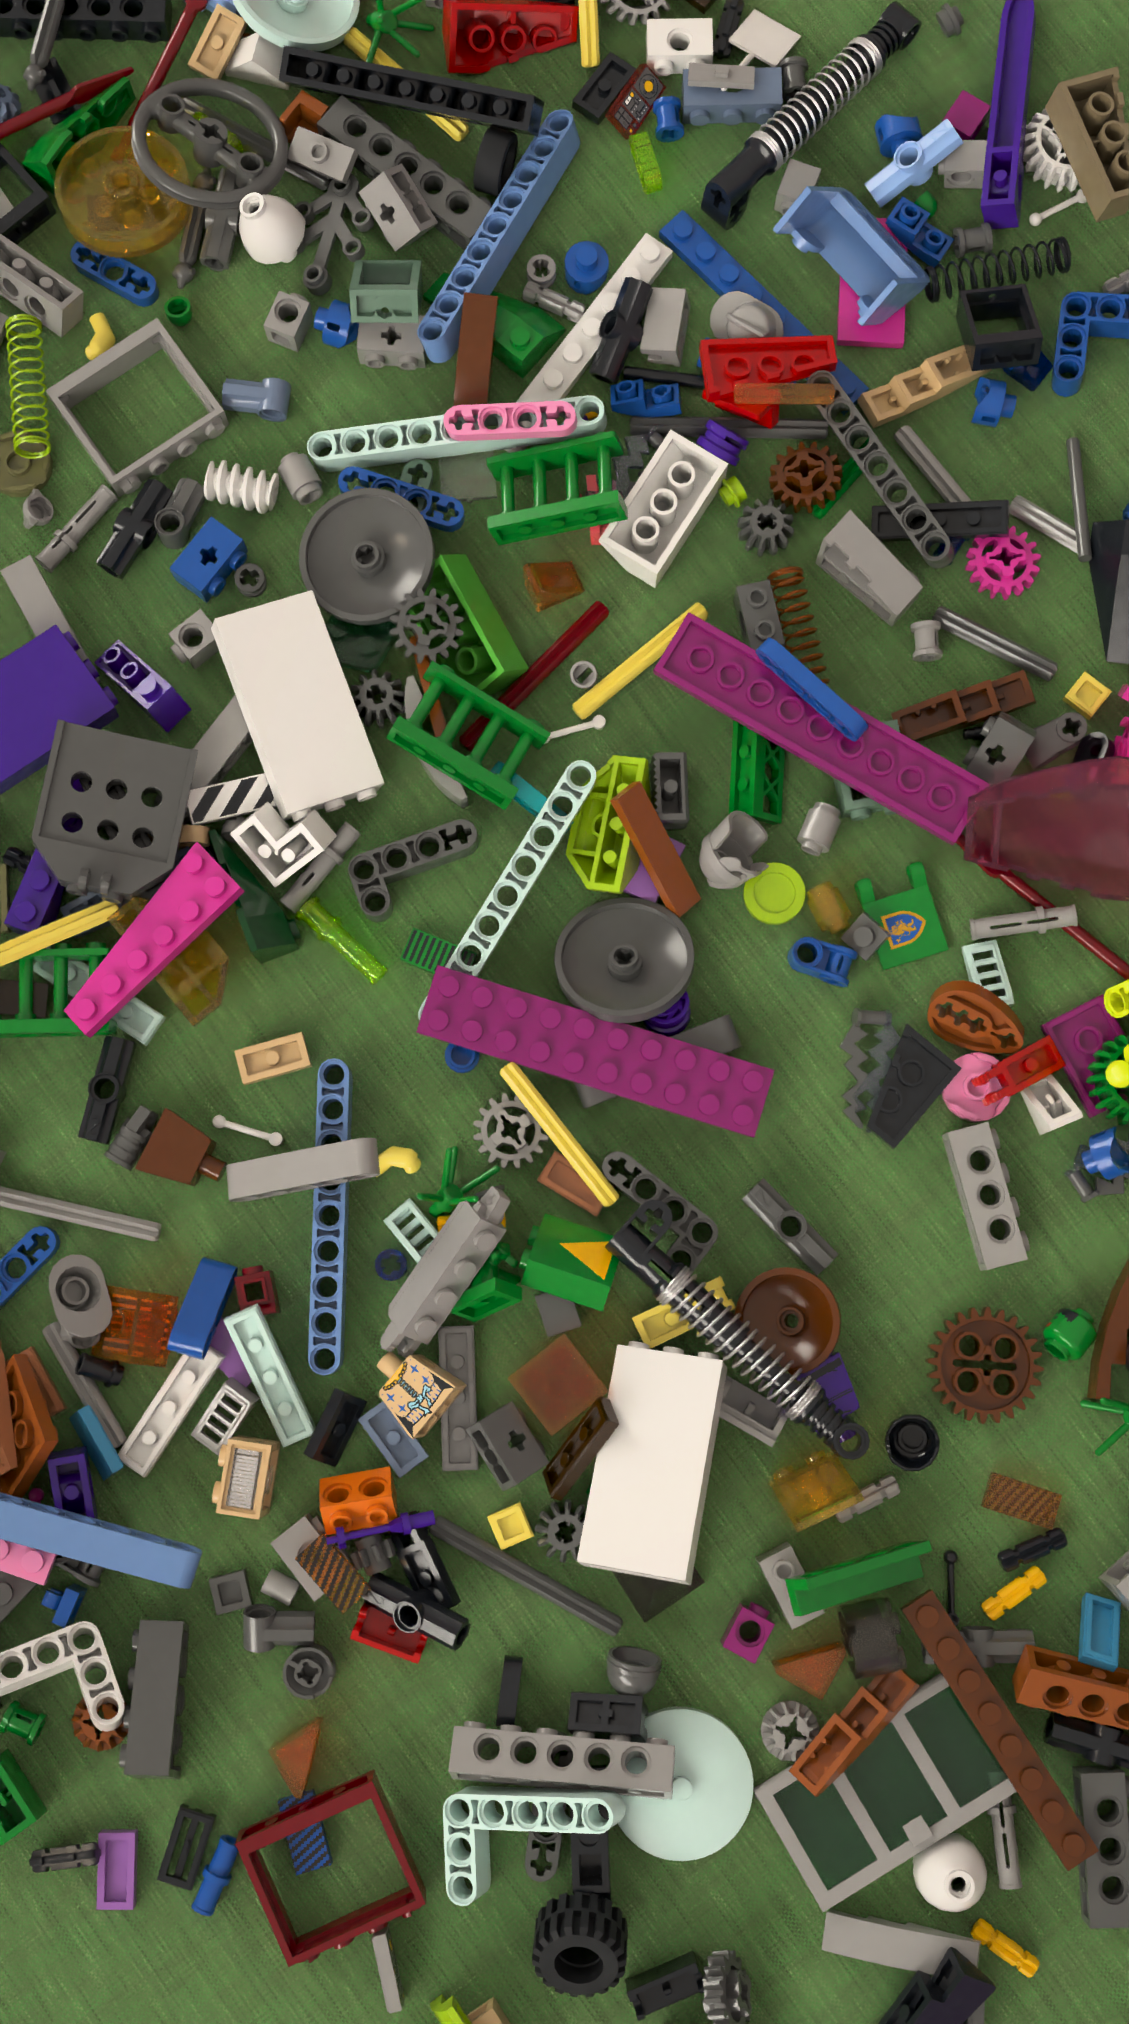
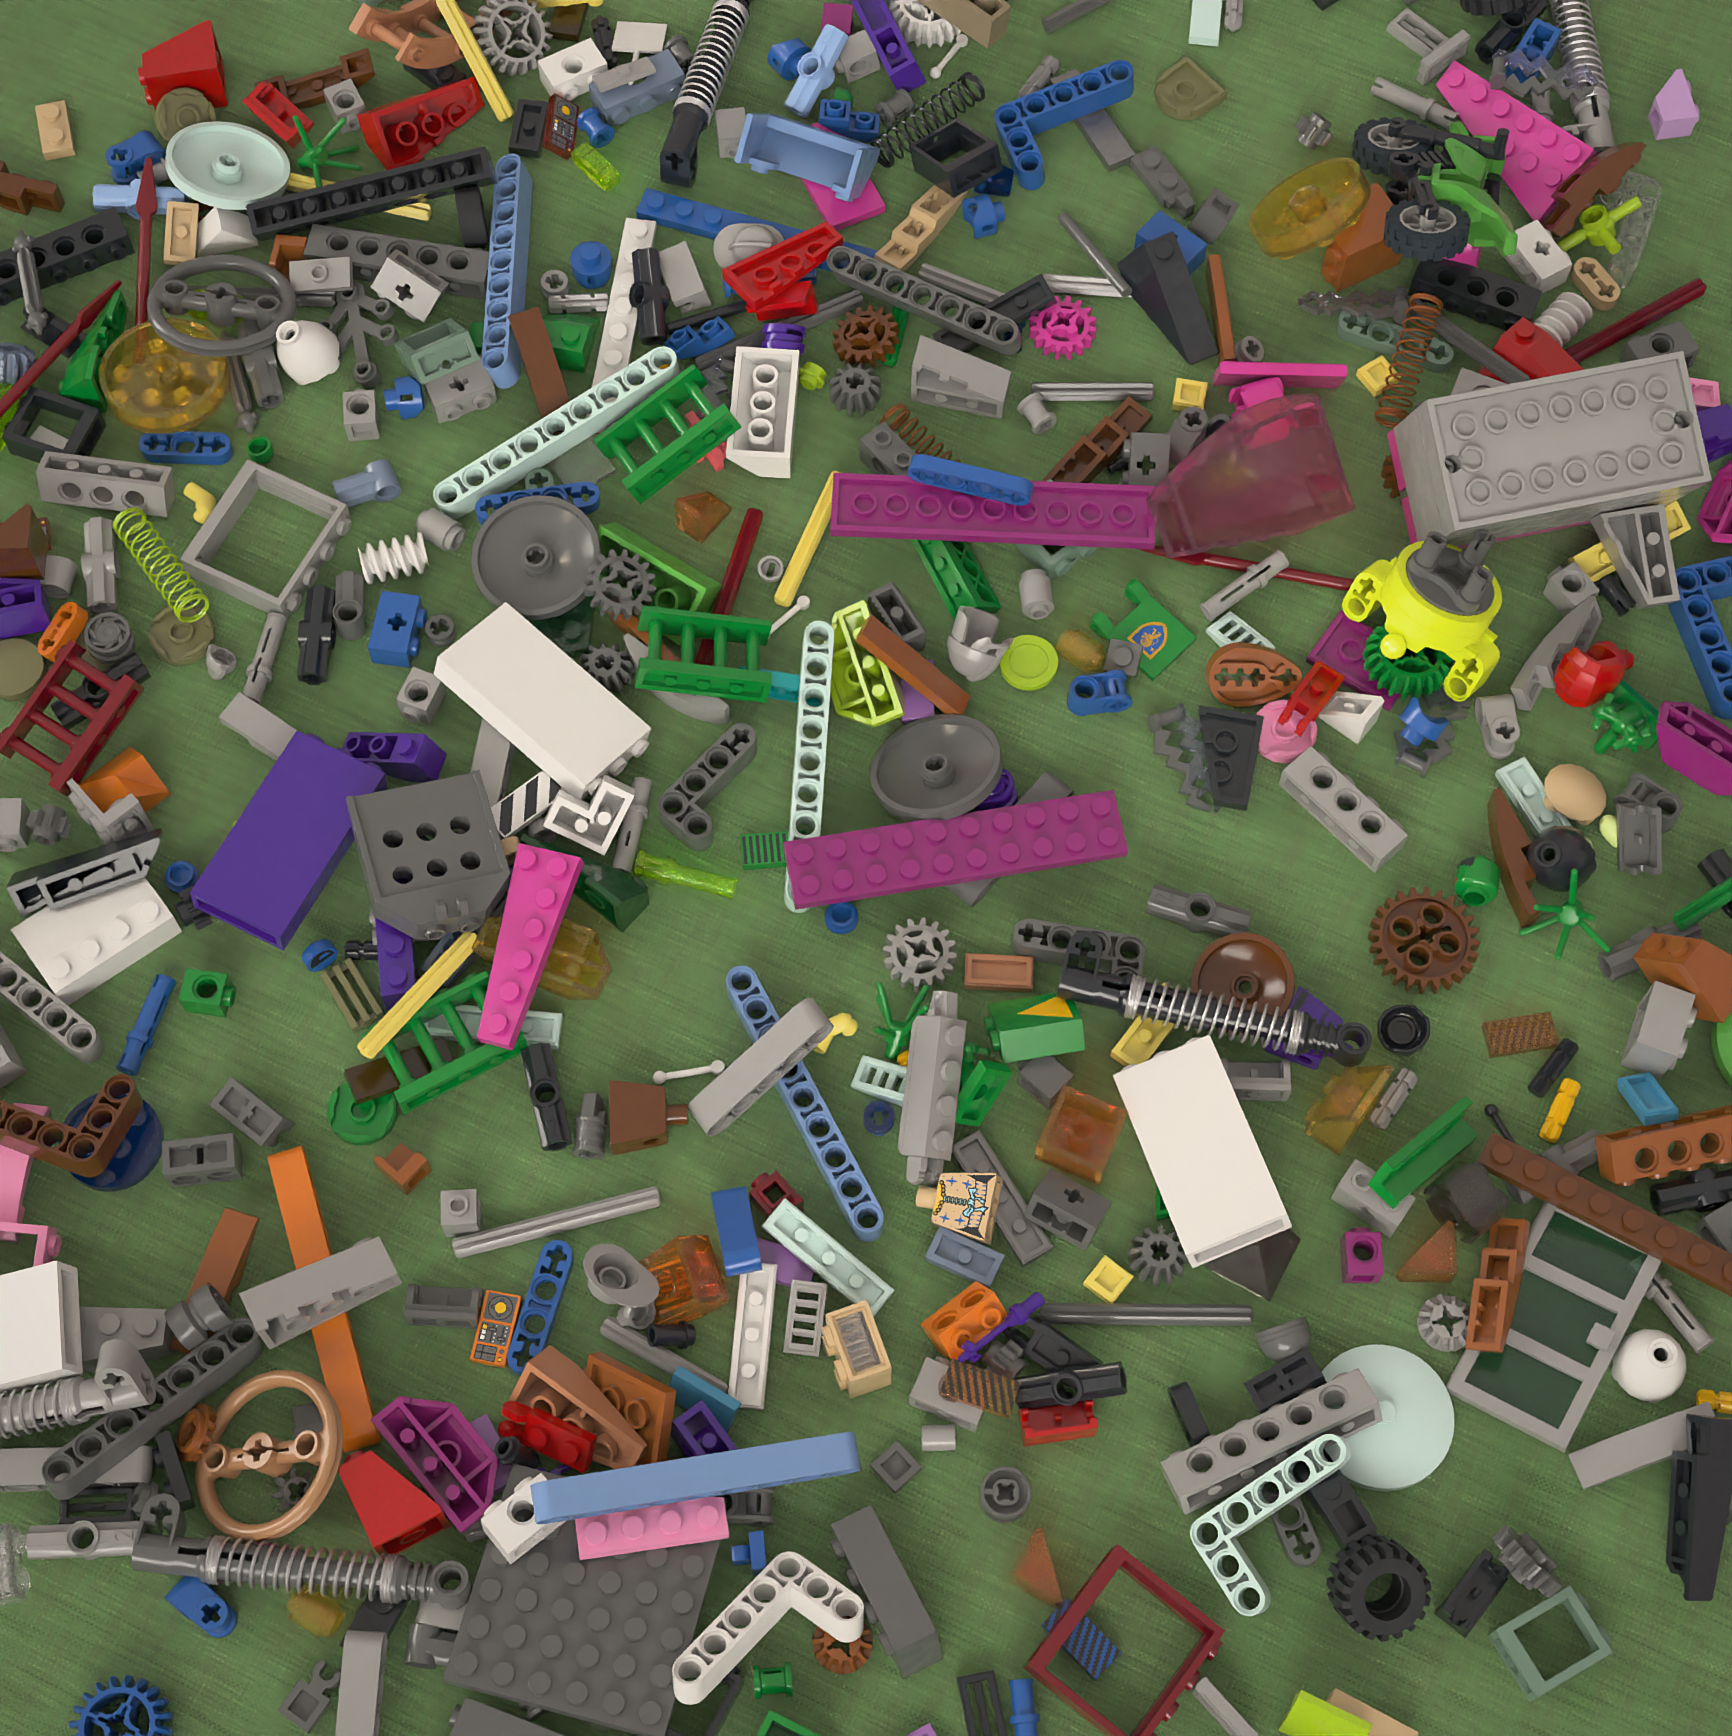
camera: 30 degrees left, 15 degrees down
(267, 1627) = (948, 1475): dark grey piece -> none
(273, 1058) = (678, 999): tan plate -> none
(335, 1427) = (909, 1274): black plate -> none
(510, 413) = (598, 391): bright pink beam -> none
(559, 1134) = (963, 931): light yellow axle -> none
(580, 1448) = (1131, 1173): dark brown tile -> none
(784, 393) = (815, 276): clear orange axle -> none

